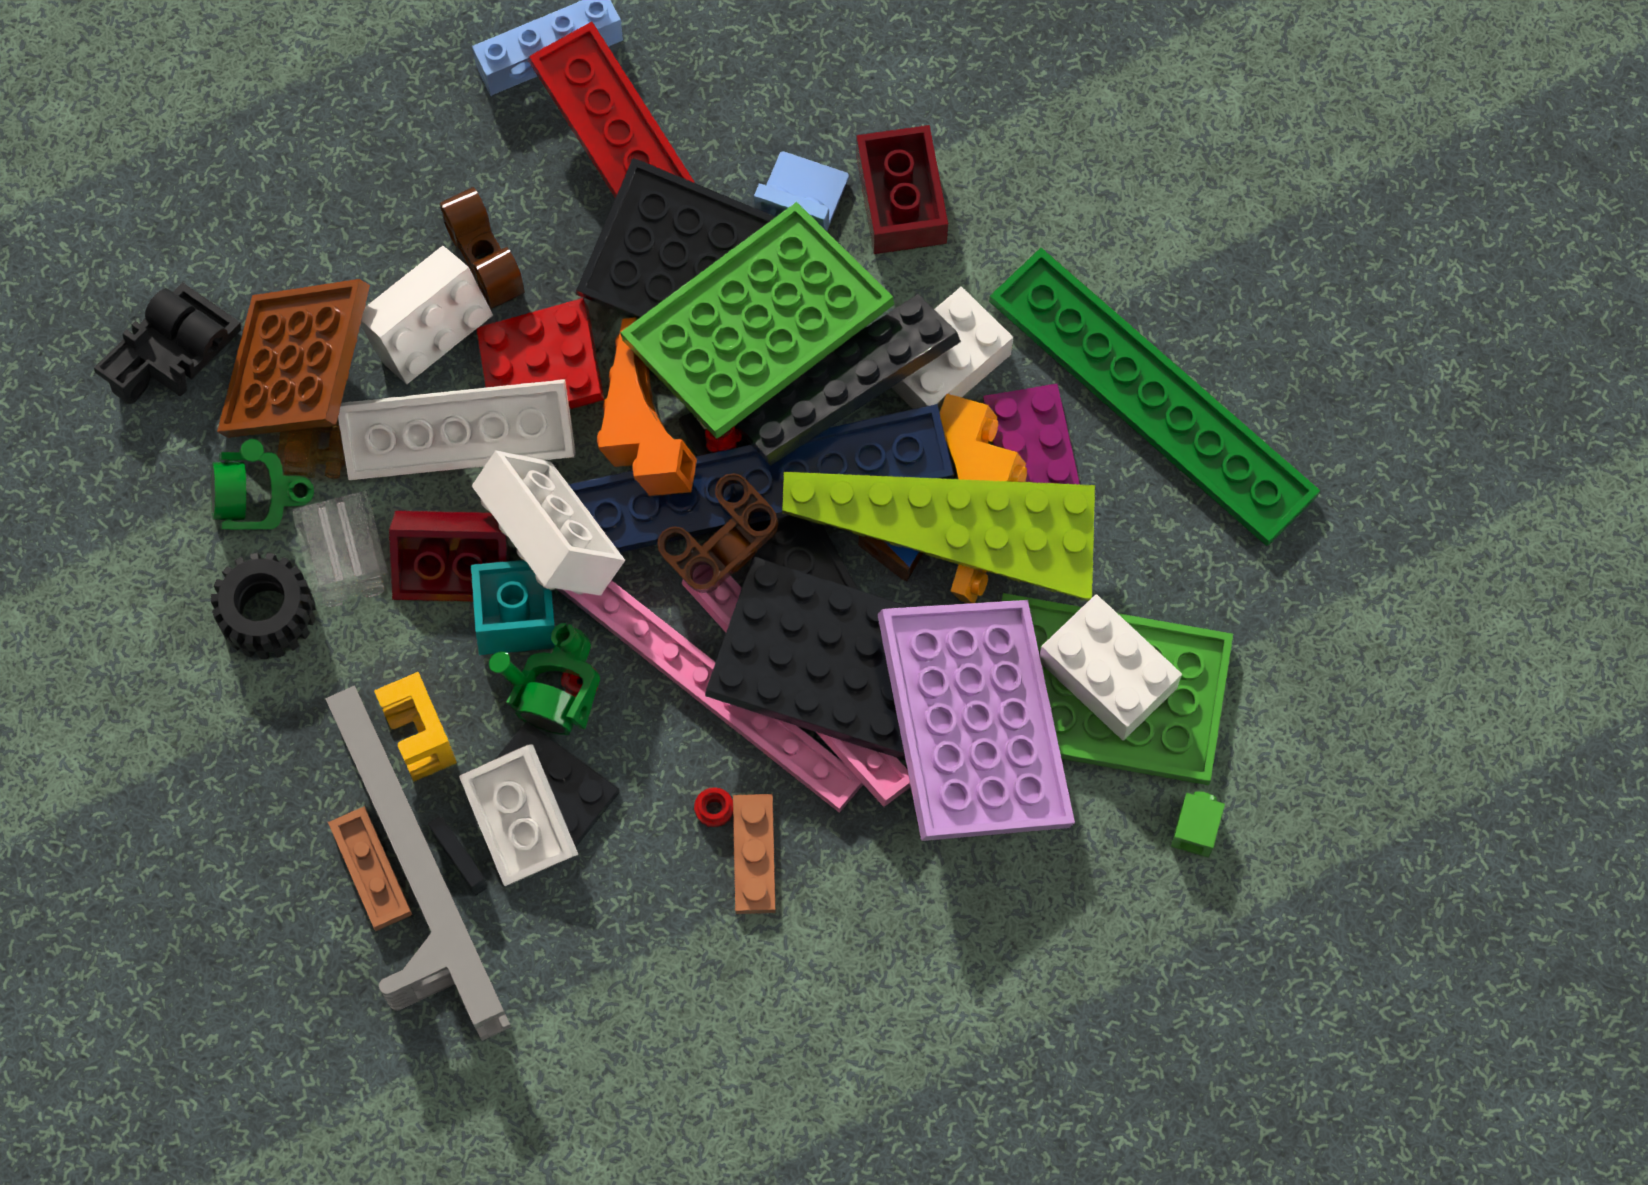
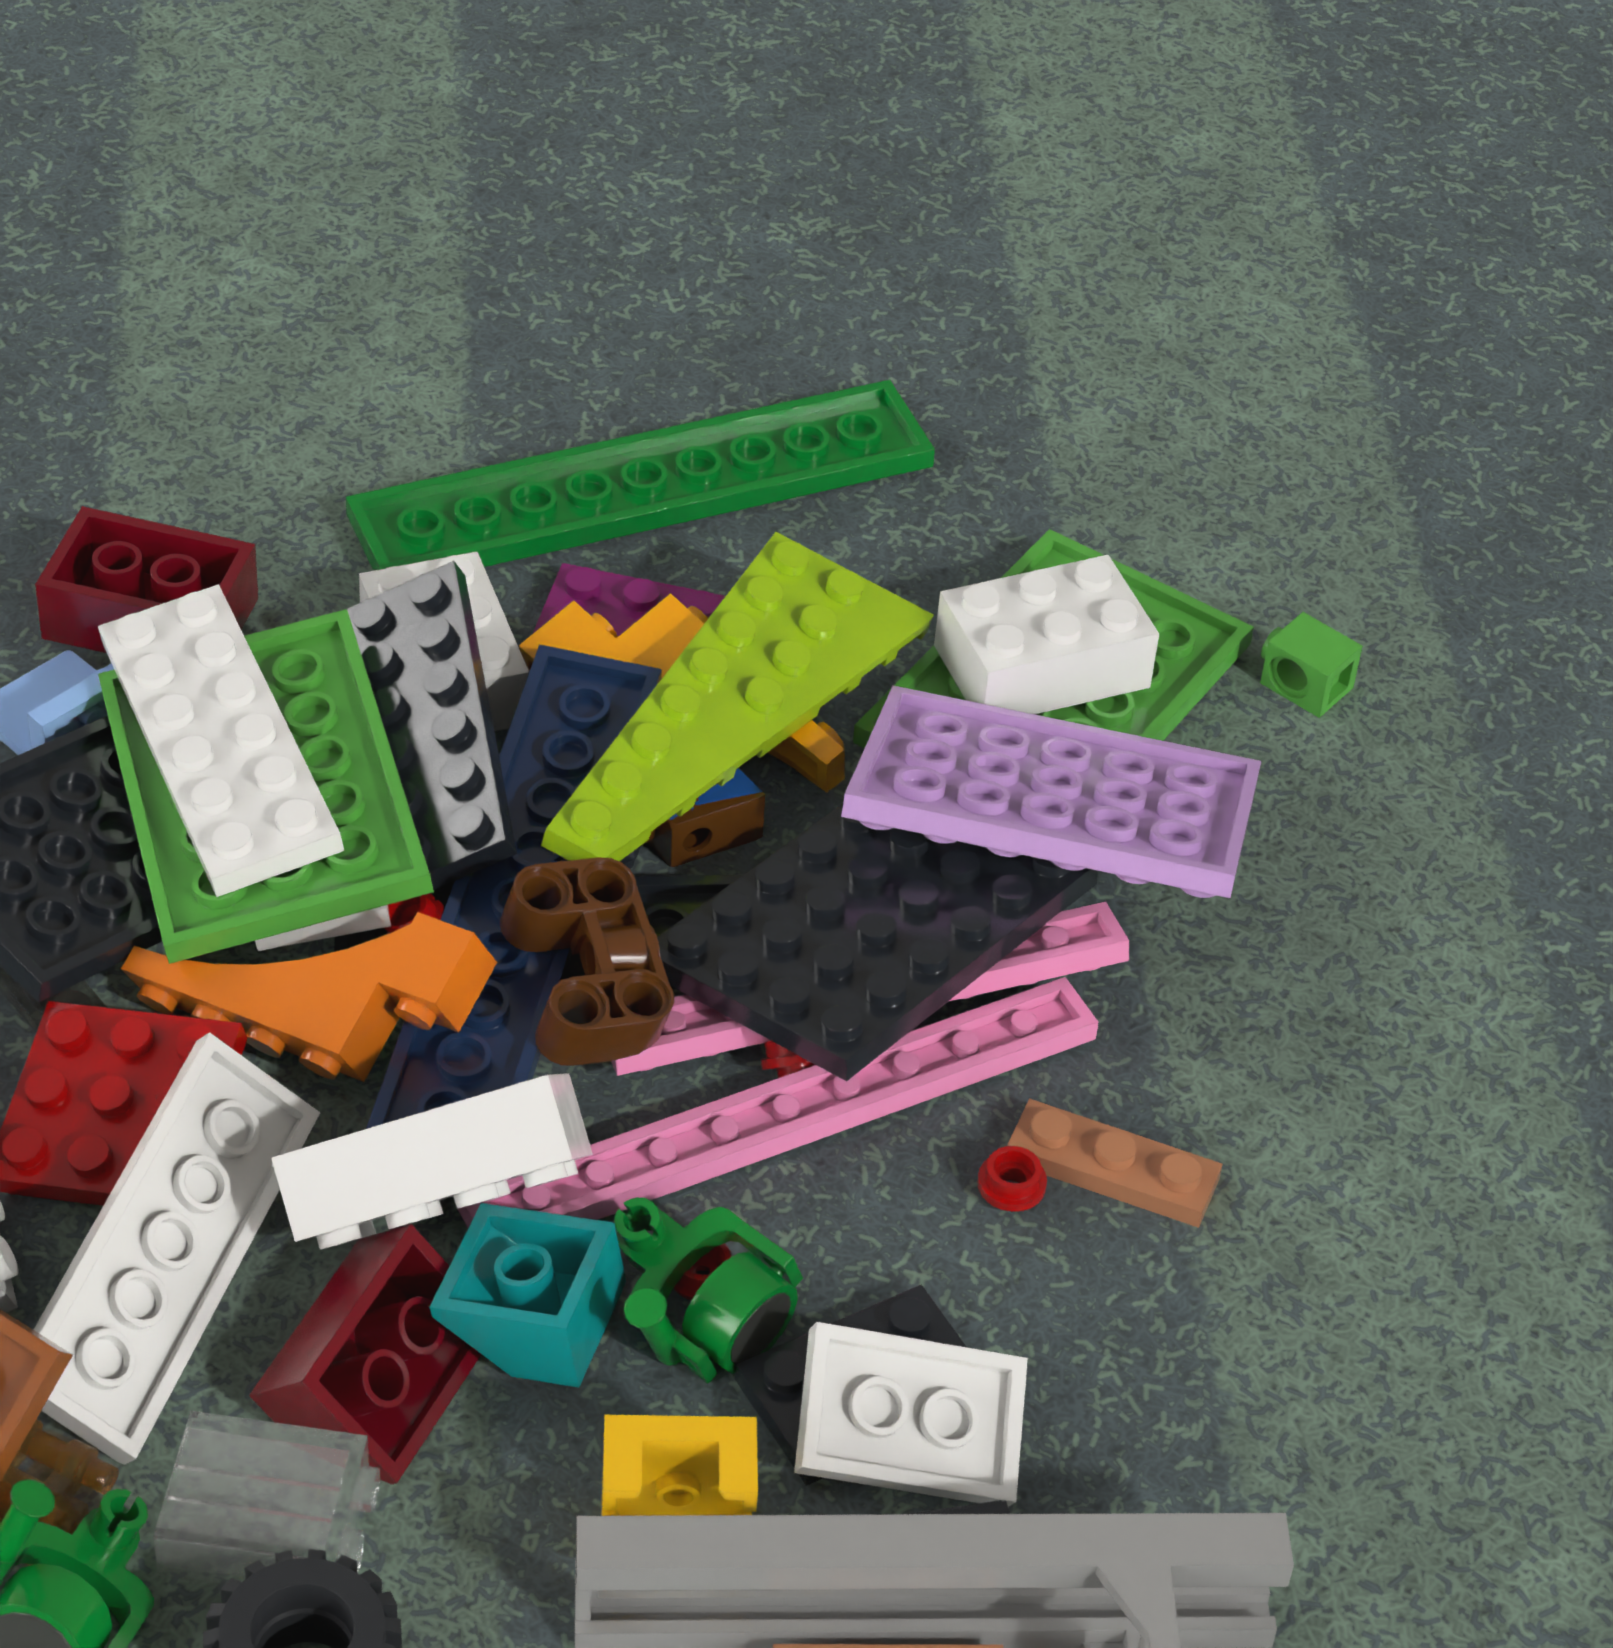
camera: 70 degrees left, 25 degrees down
(766, 283) = (220, 740): none -> white plate

